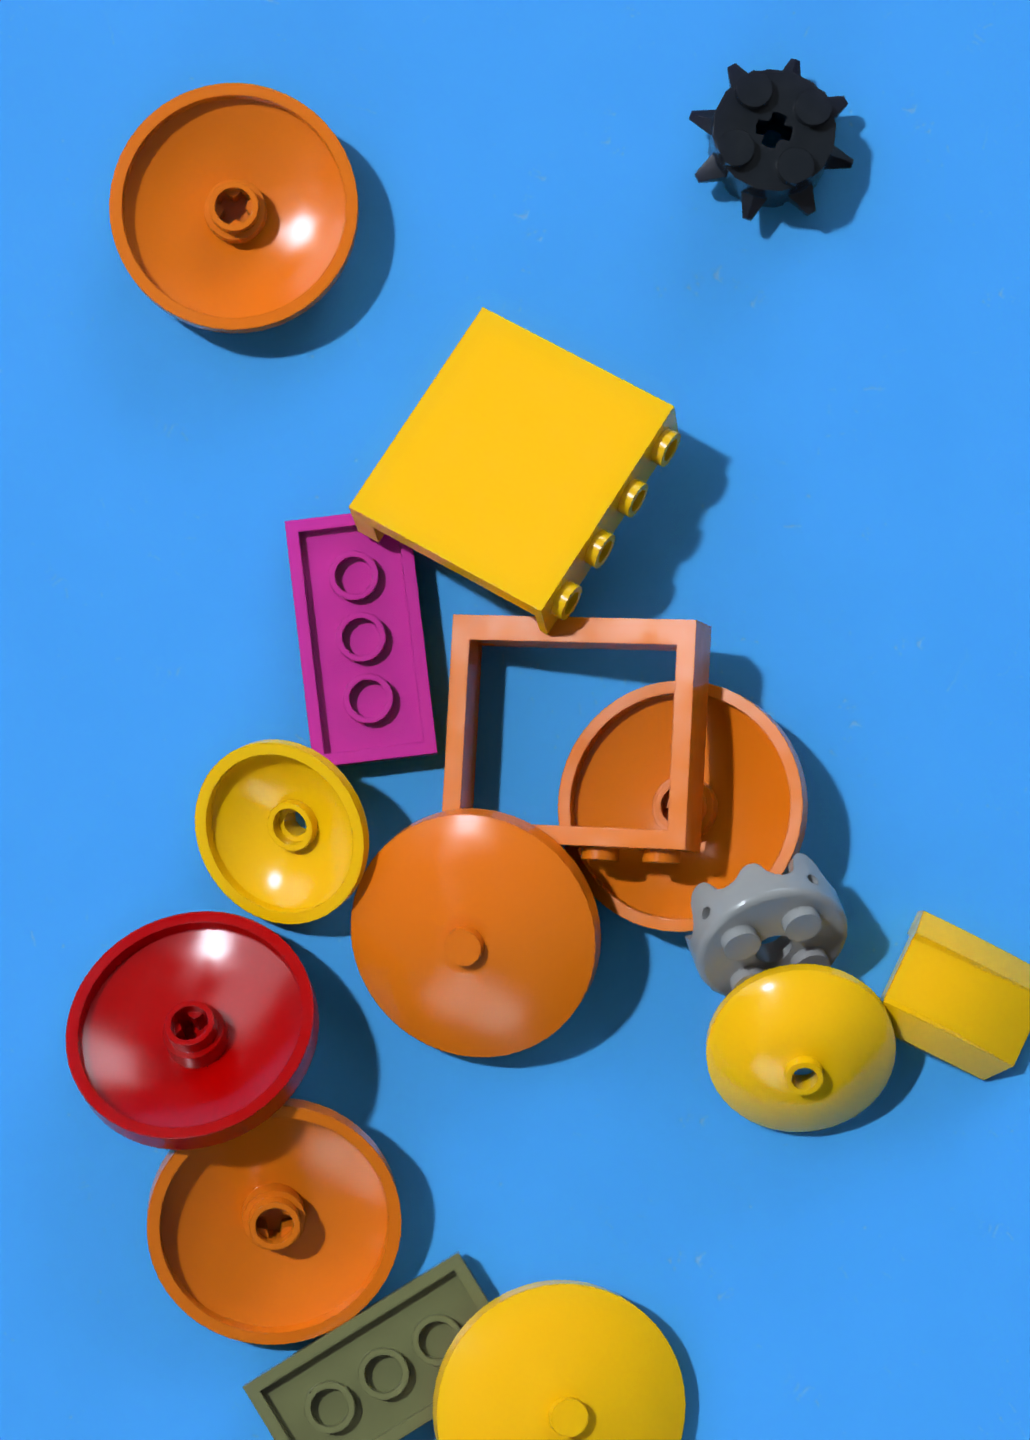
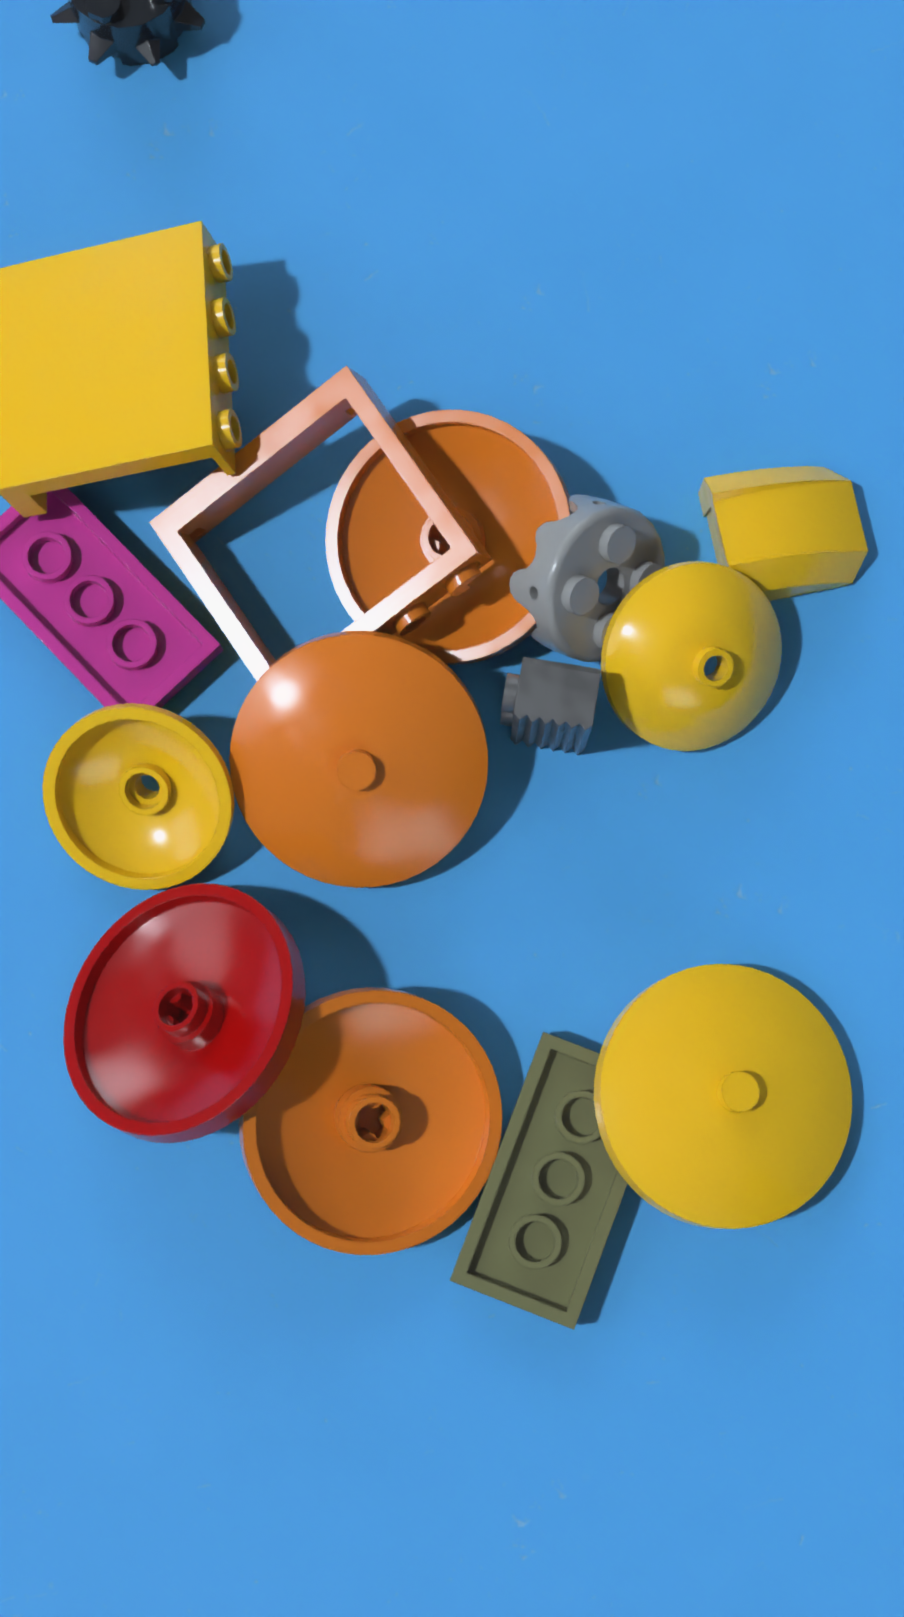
camera: 35 degrees left, 5 degrees down
(658, 1004) = (551, 704): none -> flat silver brick

